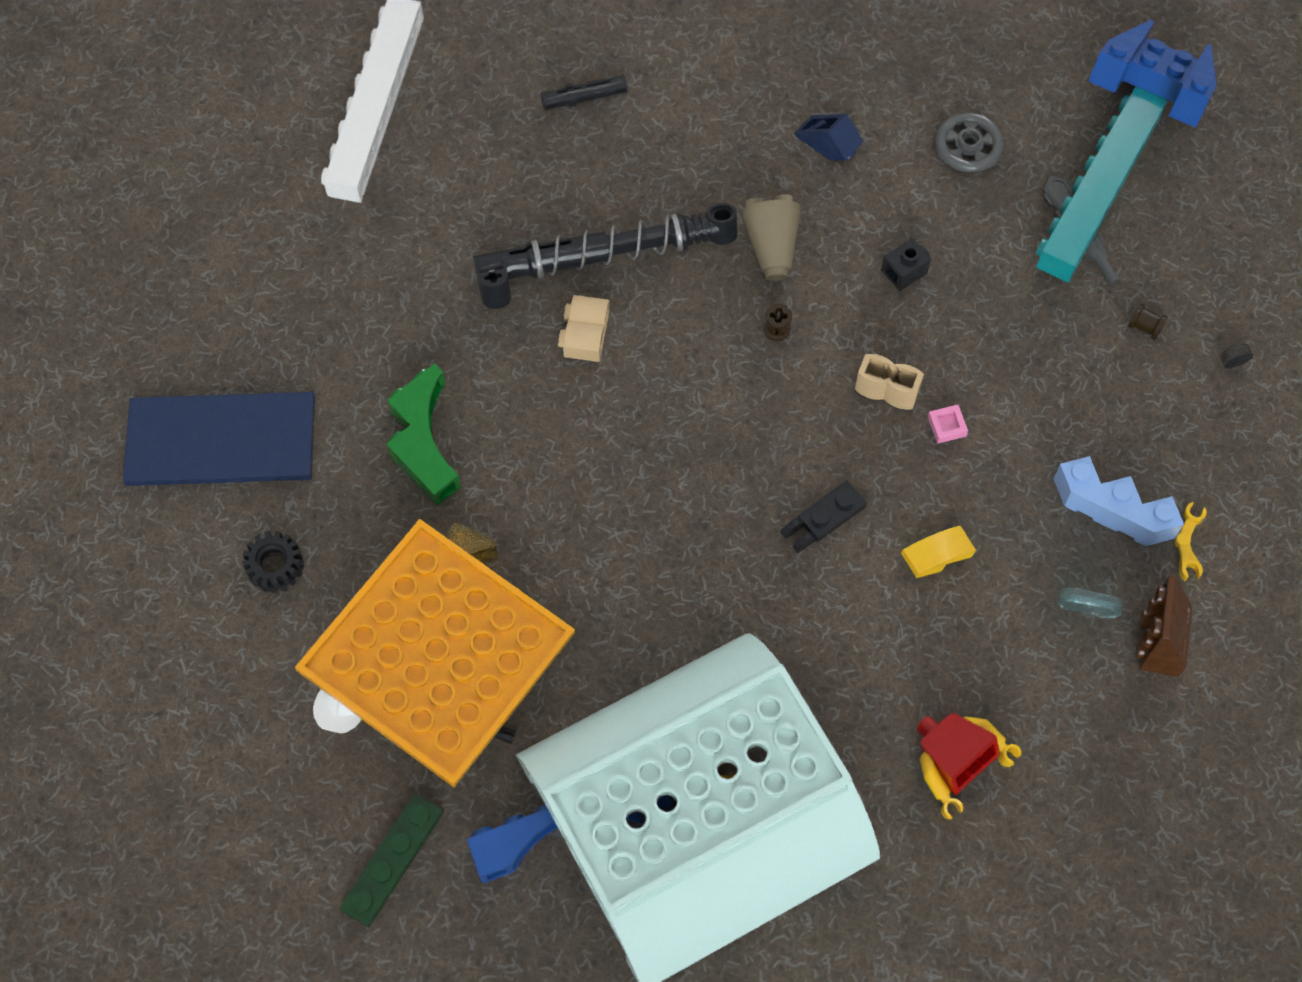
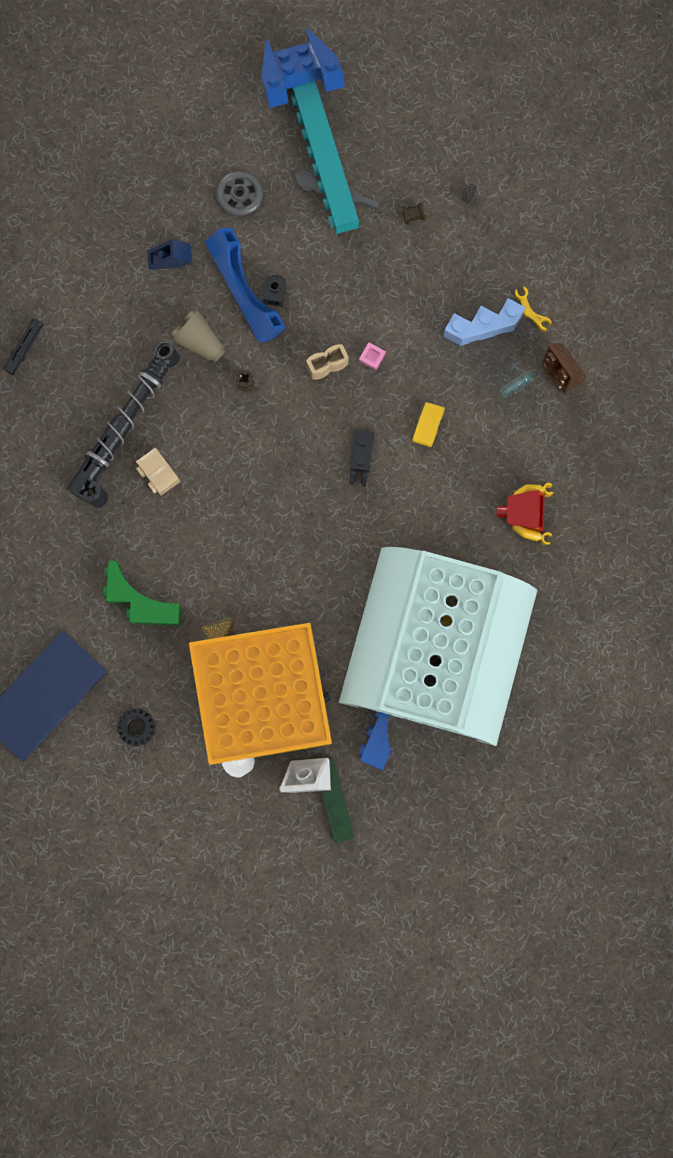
camera: 45 degrees left, 15 degrees up
(388, 798) = (307, 776): none -> white slope
(862, 278) = (225, 251): none -> blue arch

